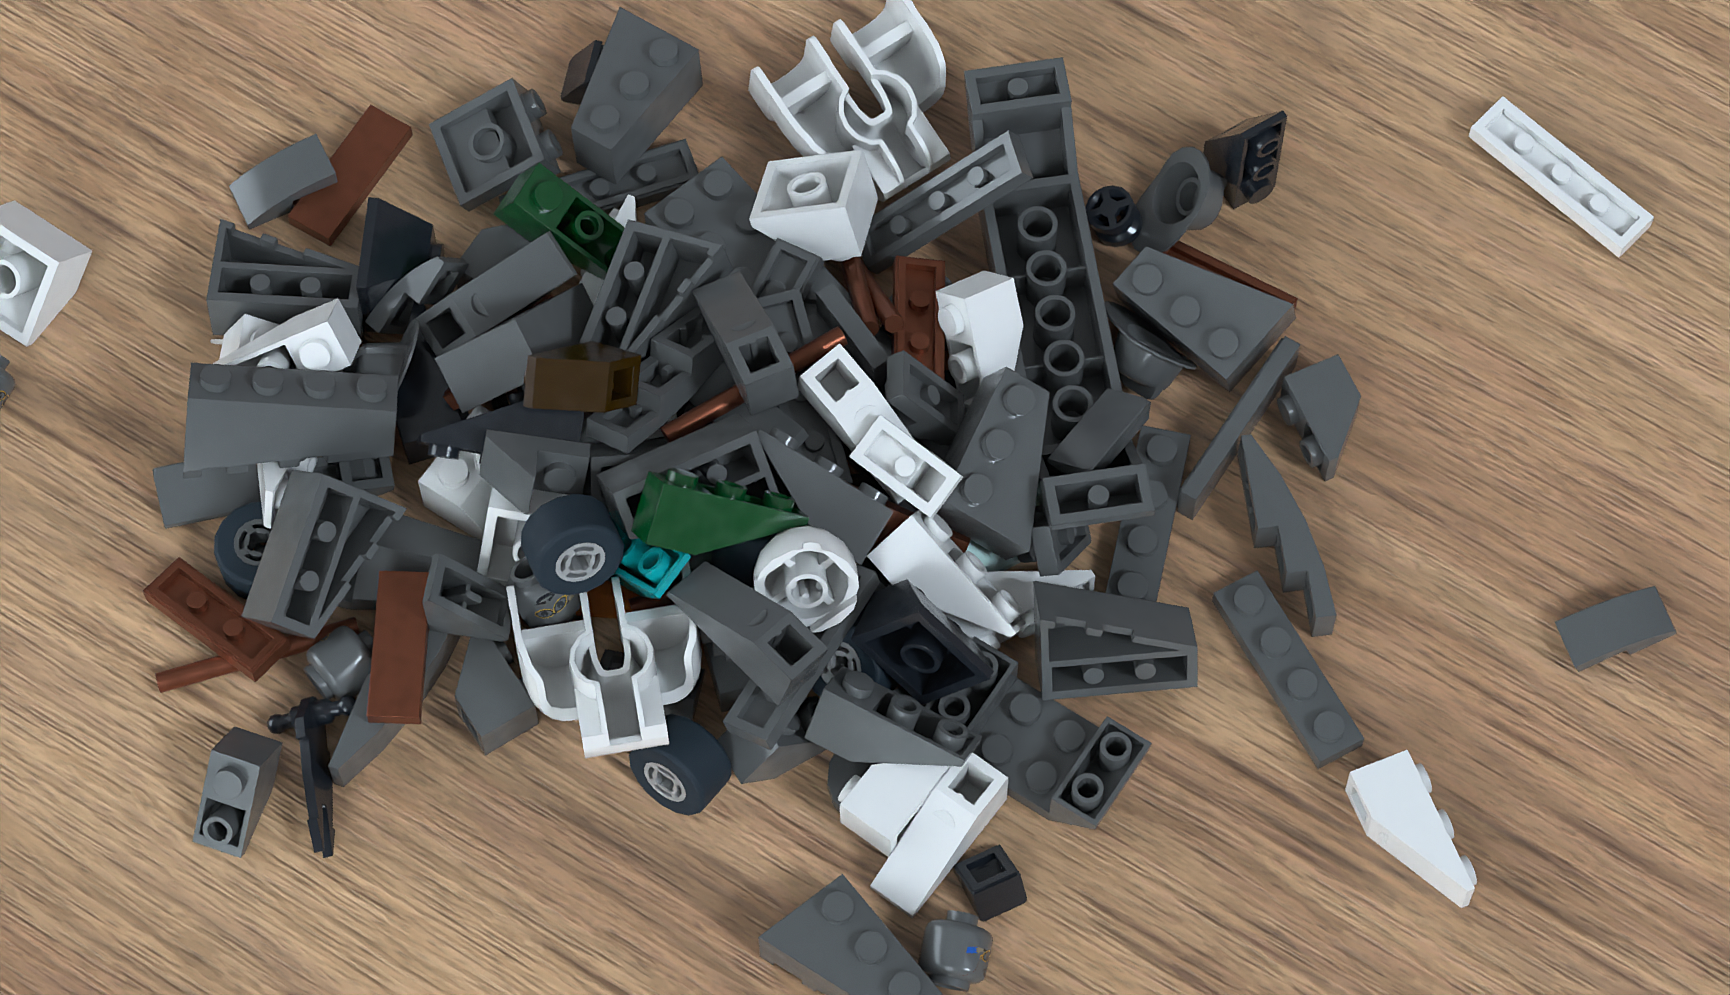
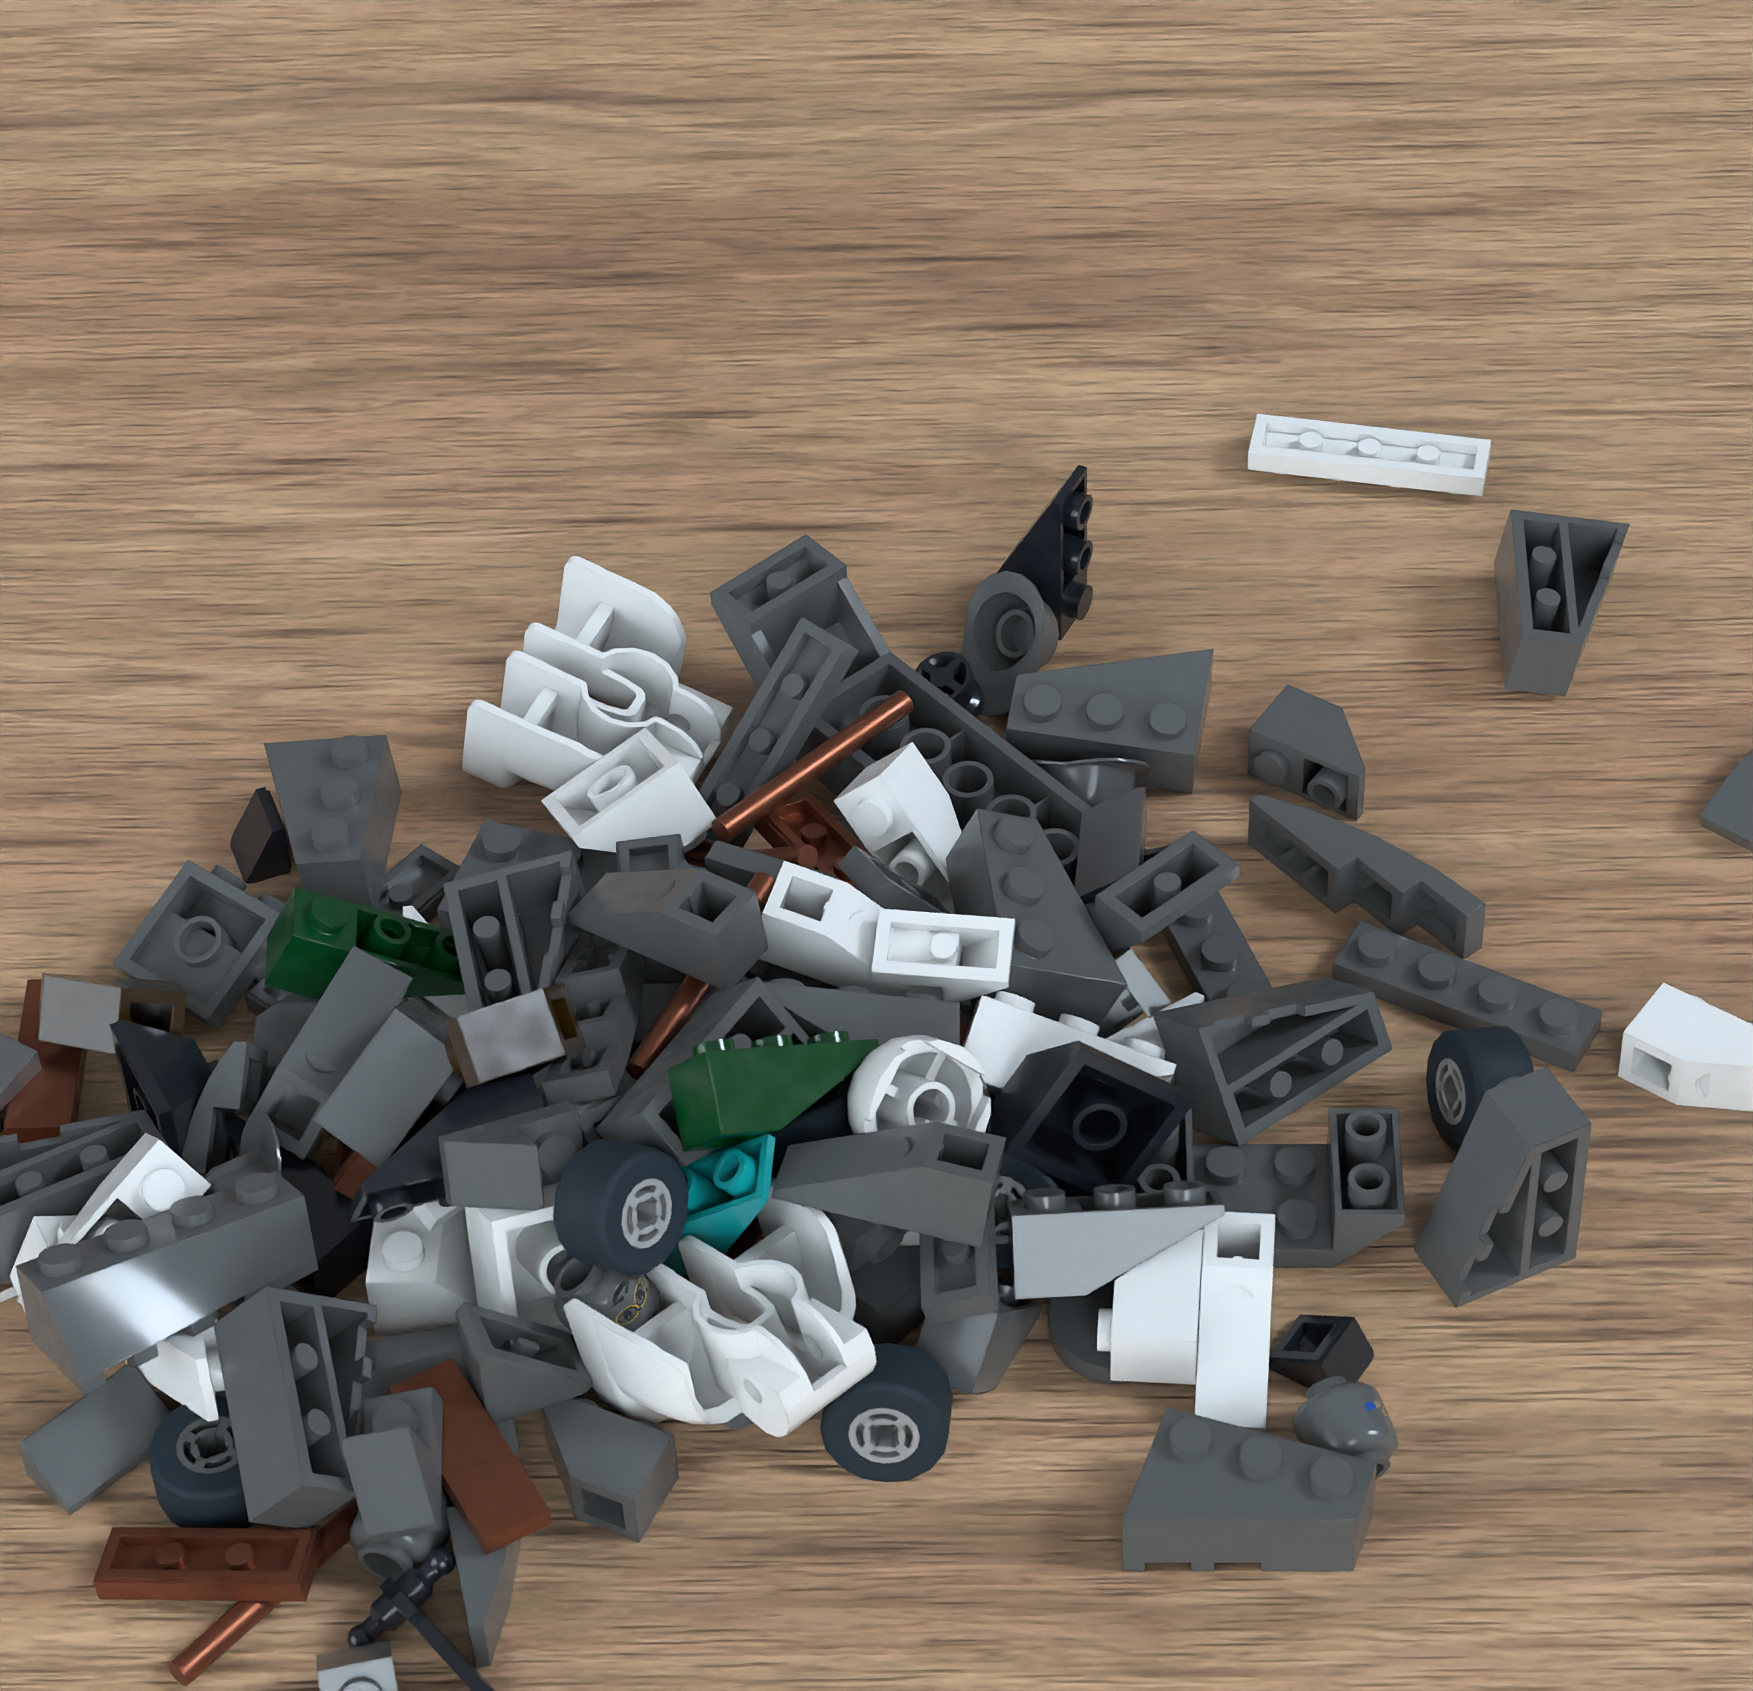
camera: 30 degrees left, 20 degrees down
(347, 637) = (398, 1464): none -> dark grey slope
(396, 170) = (81, 1007): none -> slope
(953, 246) = (812, 766): none -> copper bar
(1170, 851) = (1510, 1191): none -> dark grey wedge
(1228, 754) = (1463, 1068): none -> black wheel
(1240, 422) = (1234, 802): dark grey tile -> none
(1587, 383) = (1549, 594): none -> dark grey wedge

